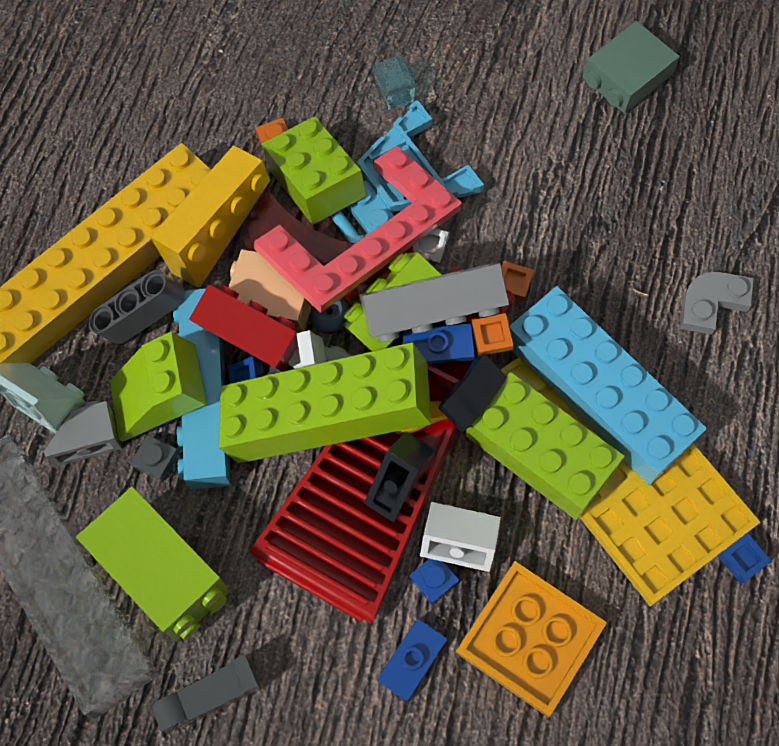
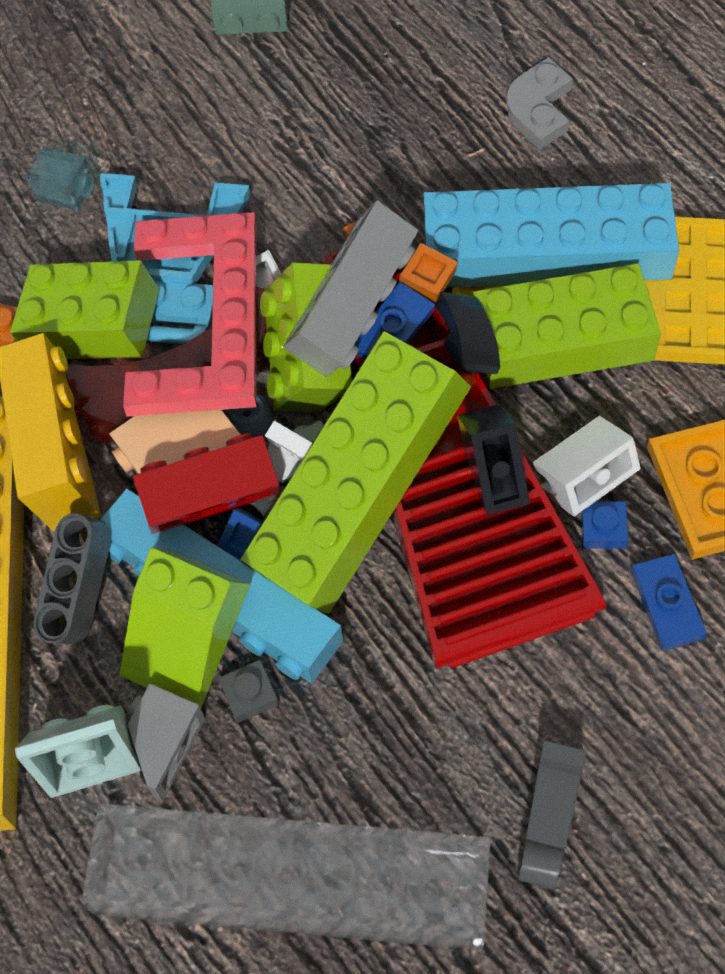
camera: 45 degrees left, 5 degrees down
(154, 565) = (378, 759): lime brick -> none

